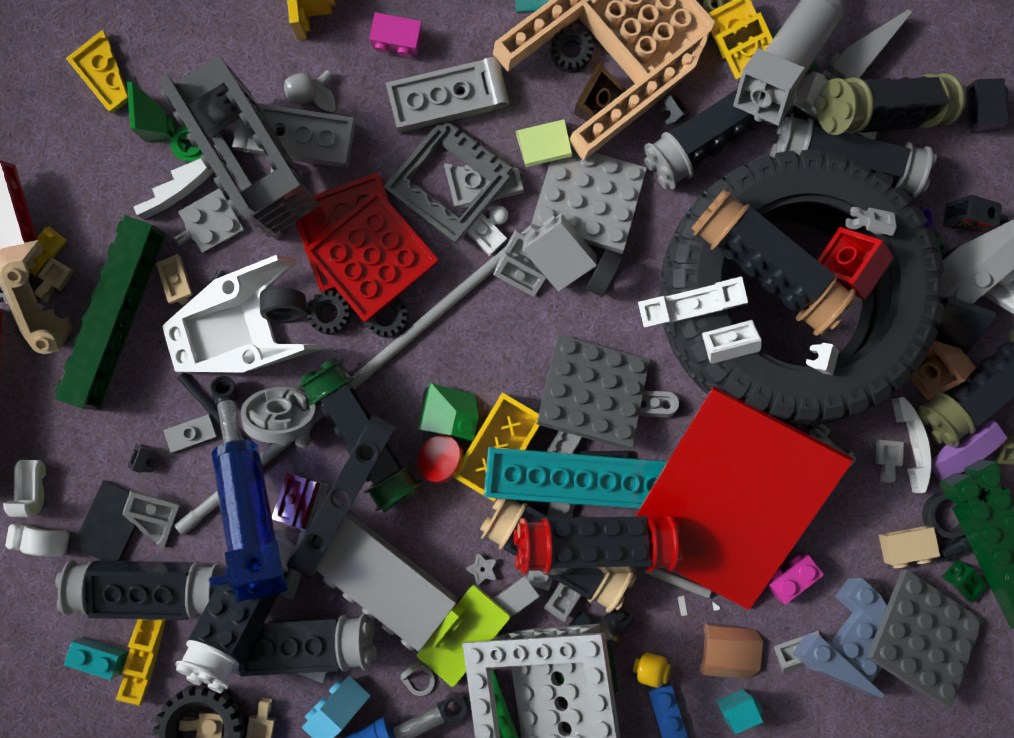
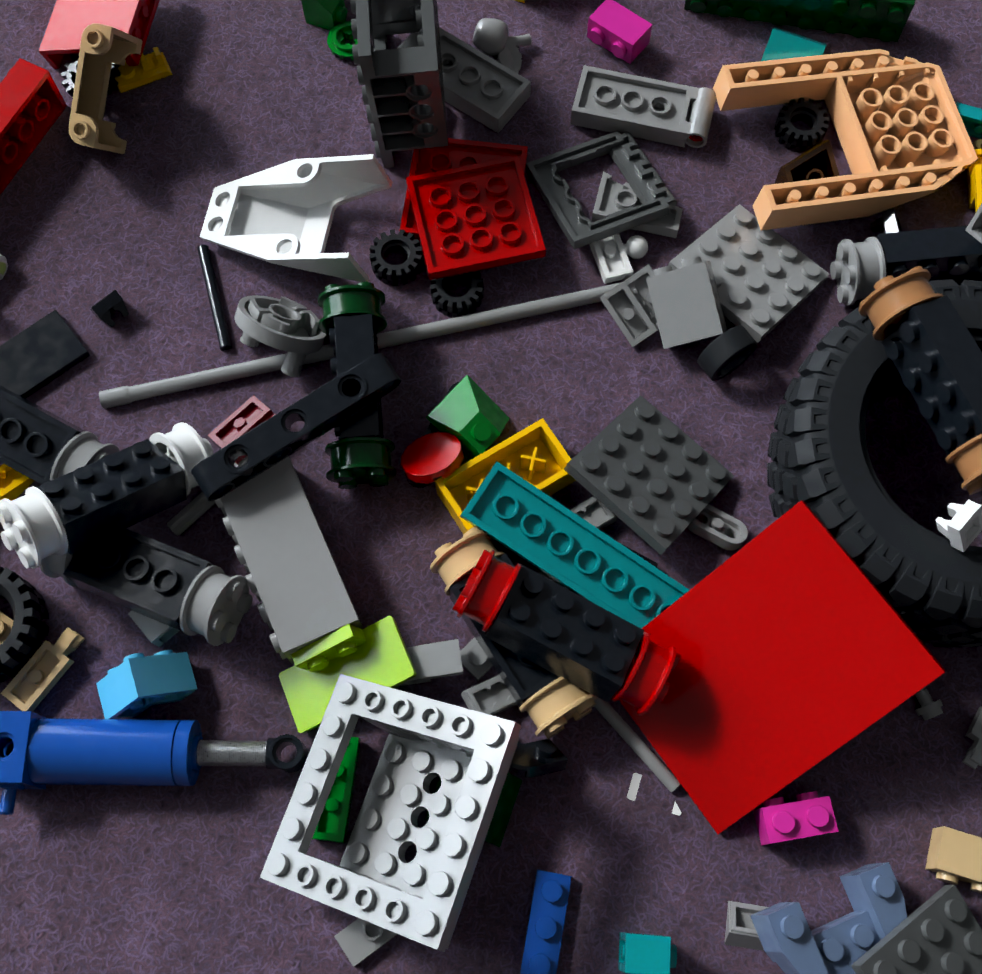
camera: 30 degrees right, 15 degrees down
(54, 276) = (136, 95): tan plate -> none
(110, 314) = (168, 149): dark green brick -> none
(151, 515) = (81, 367): light grey wing -> none
(175, 280) = (255, 151): tan plate -> none
(185, 181) = (306, 72): white slope -> none
(190, 433) = (176, 309): light grey plate -> none
(209, 222) = (326, 118): light grey plate -> none
(249, 532) = (156, 435): clear blue piece -> none
(282, 305) = (360, 211): black tyre -> none
(425, 668) = (261, 681): light grey piece -> none
(482, 562) = (417, 621): light grey plate -> none
(544, 143) = (726, 191): yellowish green slope -> none
(652, 670) = (556, 843): yellow head -> none
(693, 303) = (822, 390): white slope -> none
(731, 651) = (670, 876): nougat slope -> none
(732, 341) = (851, 455): white slope -> none

